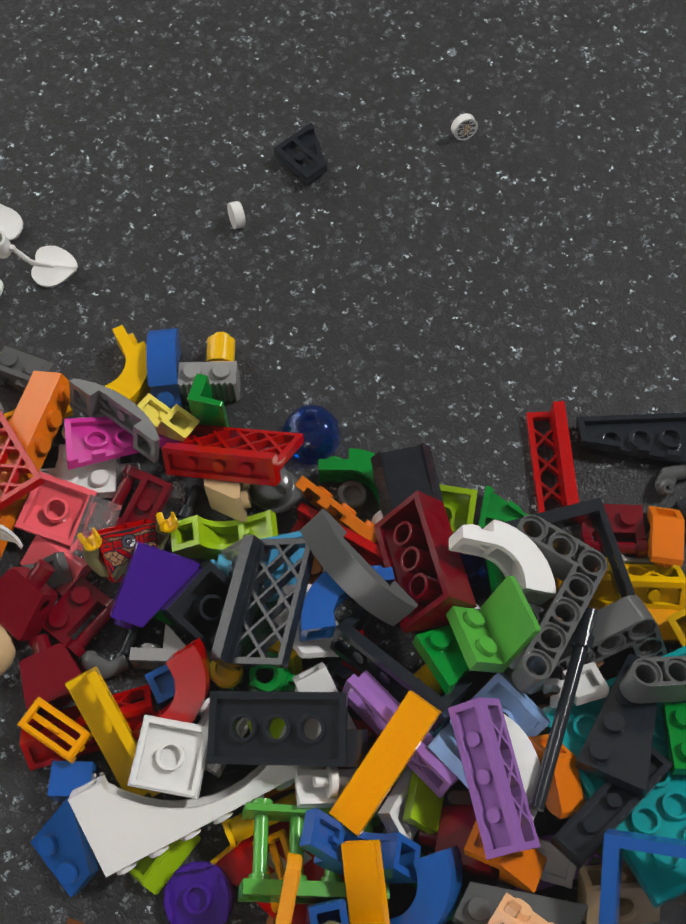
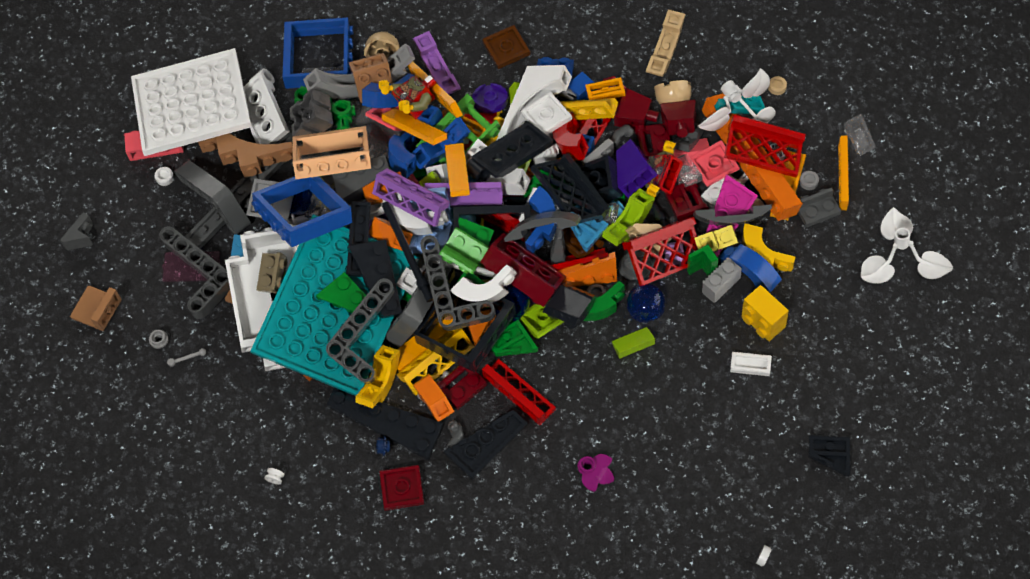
camera: 140 degrees right, 0 degrees up
(213, 300) = (764, 313): none -> yellow brick
(220, 347) = (732, 299): yellow brick -> none
(236, 214) = (820, 380): white tile -> none
(279, 288) = (750, 363): none -> white tile
(371, 406) = (633, 342): none -> lime slope
(545, 317) = (598, 473): none -> magenta plate

